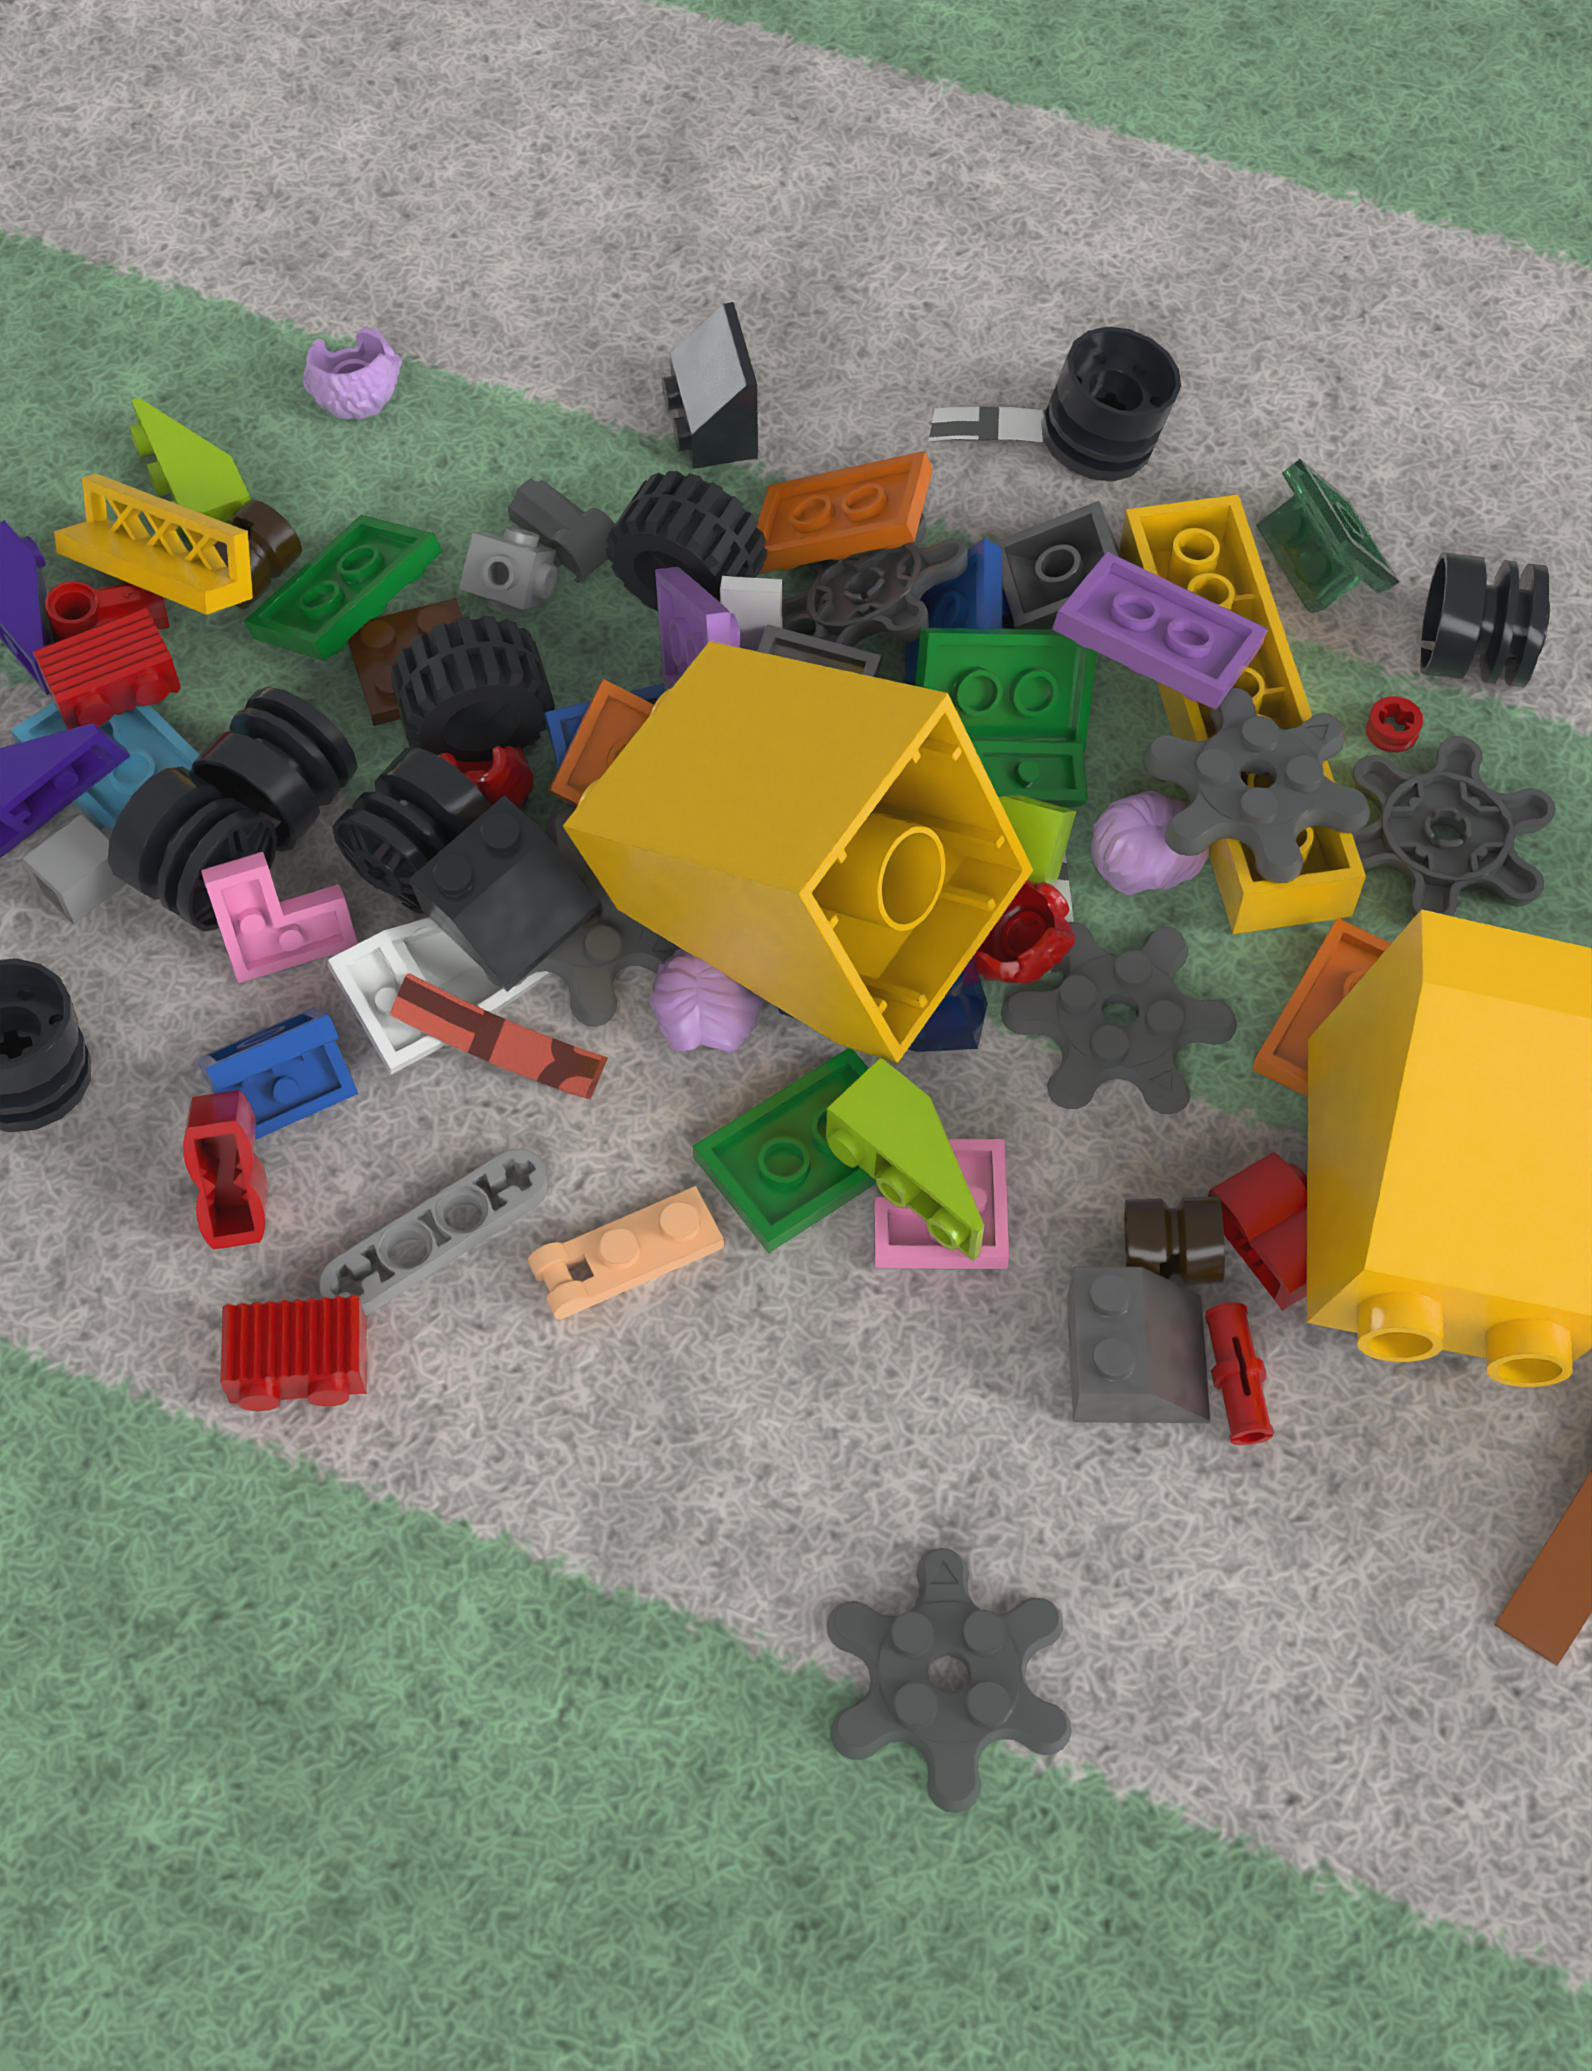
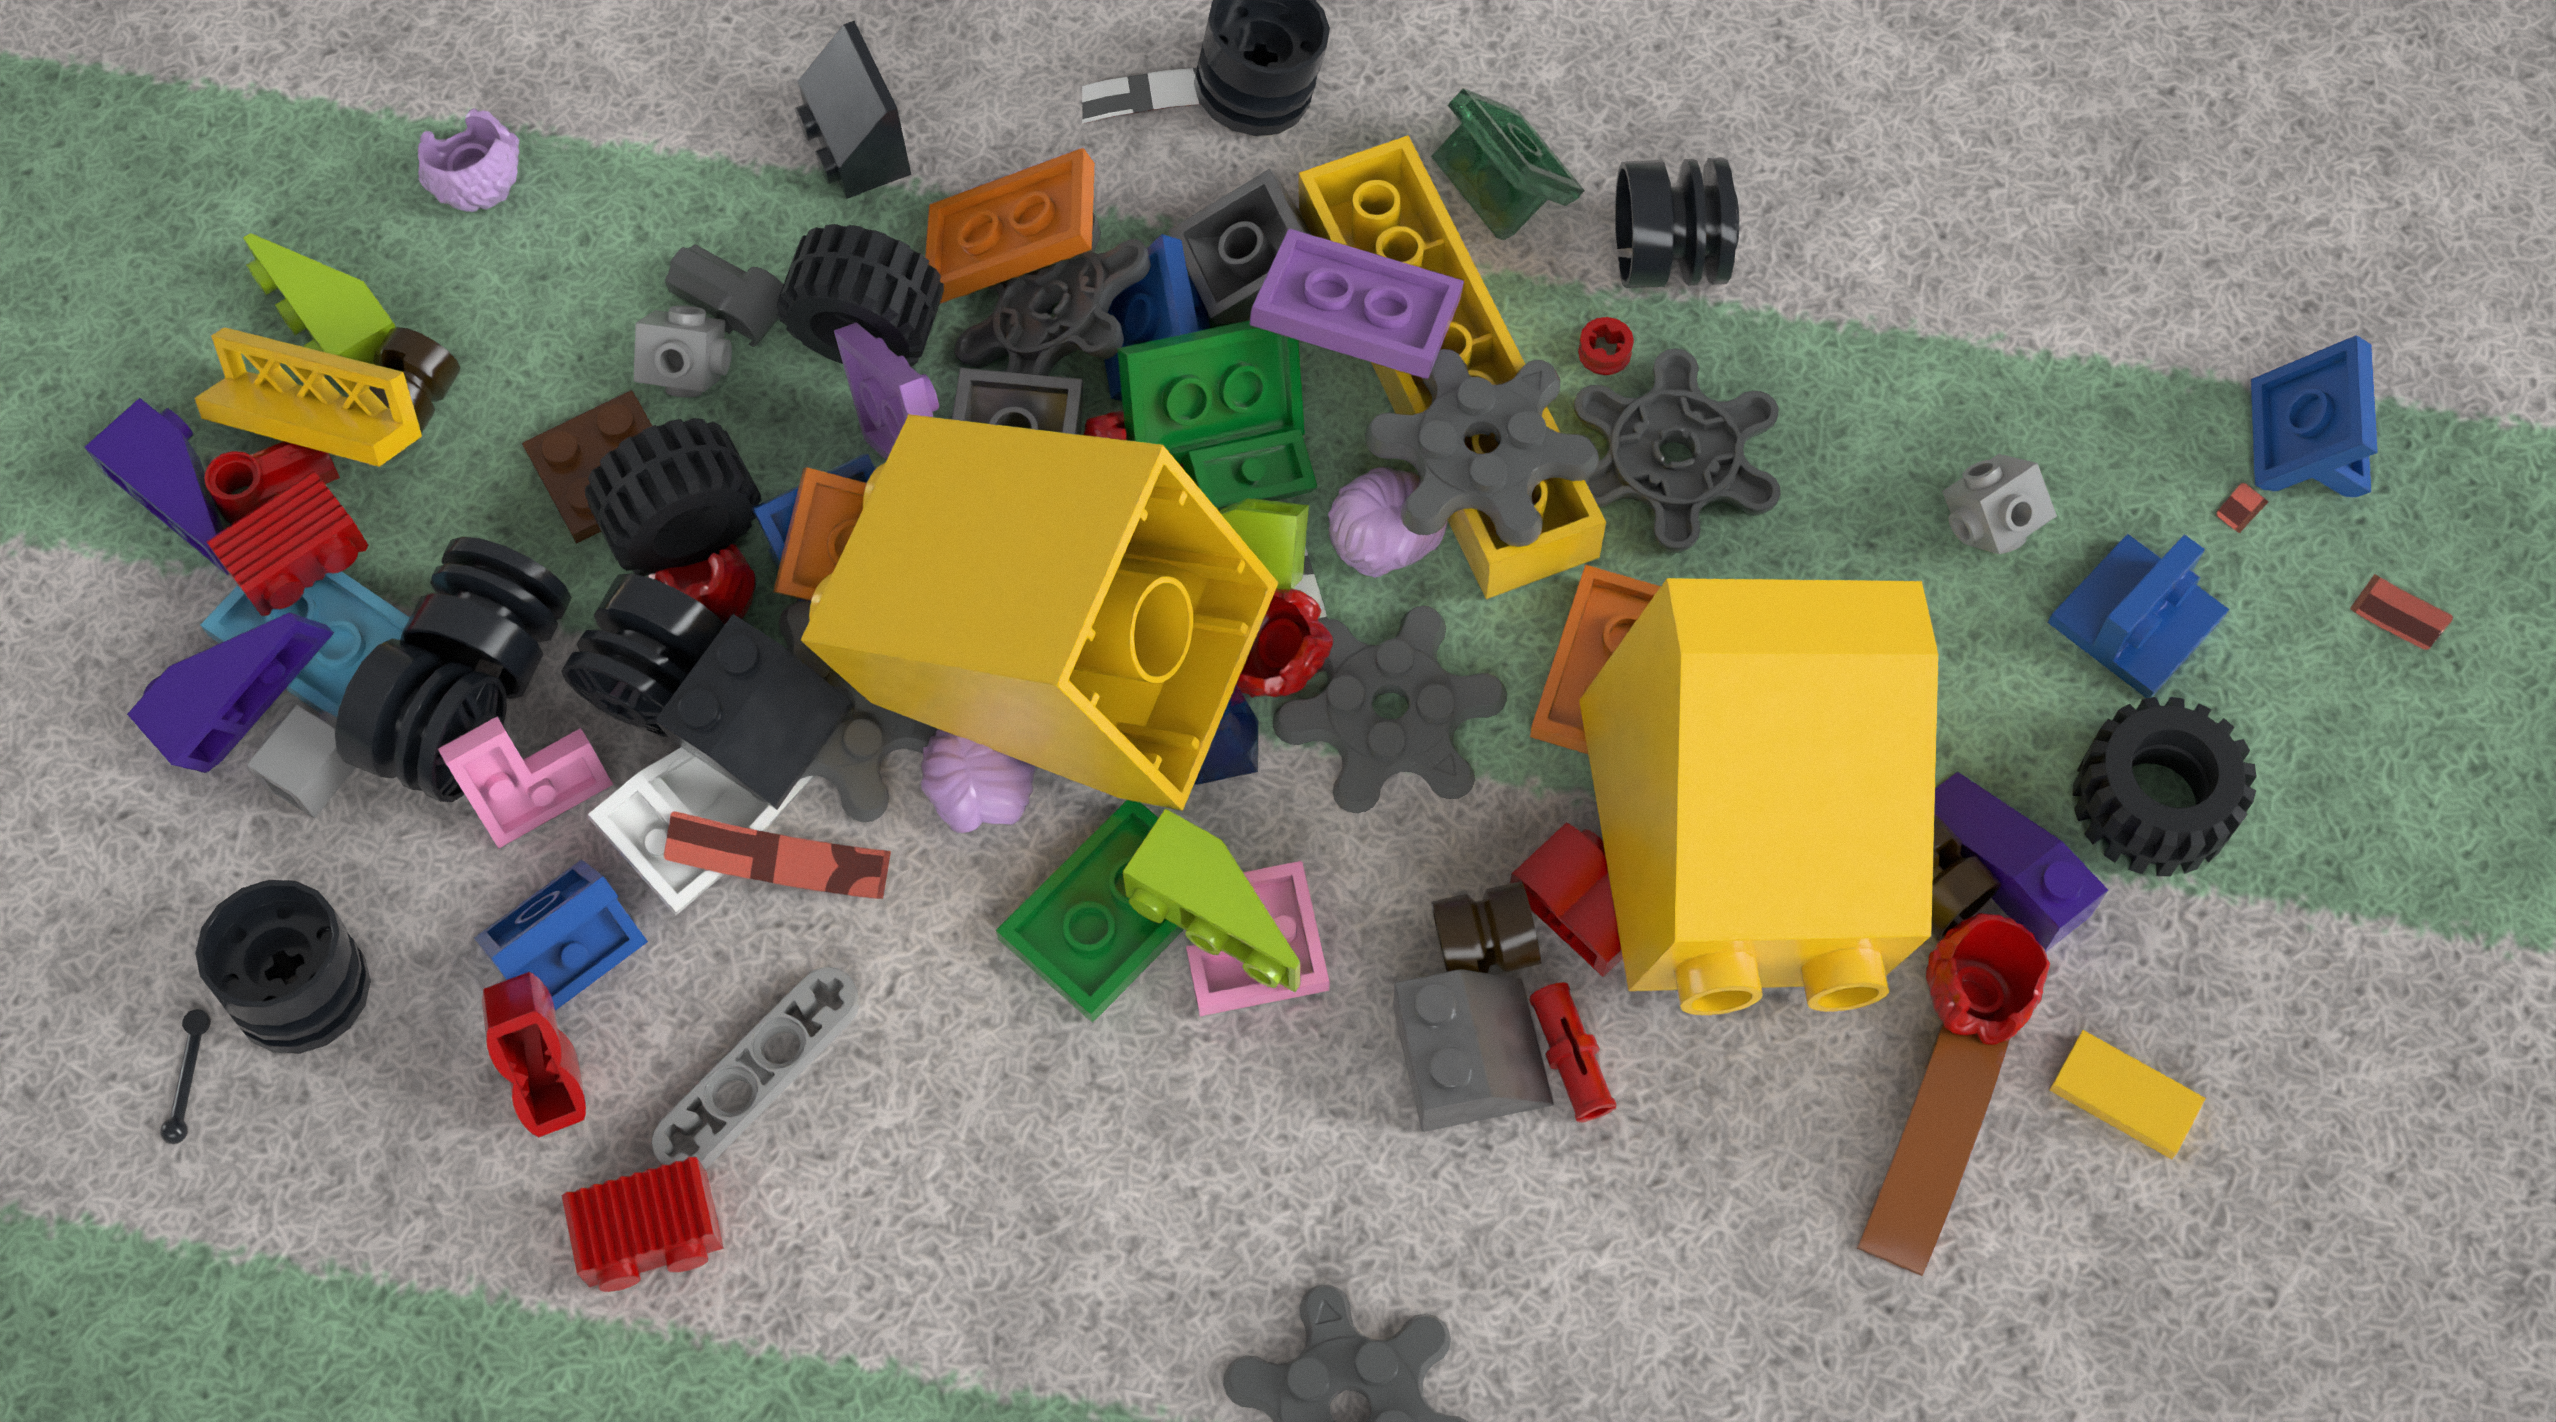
camera: 10 degrees left, 5 degrees up
(343, 587) = (512, 402): green plate -> none
(627, 1252) = (952, 1051): light nougat plate -> none
(754, 604) = (940, 354): white slope -> none

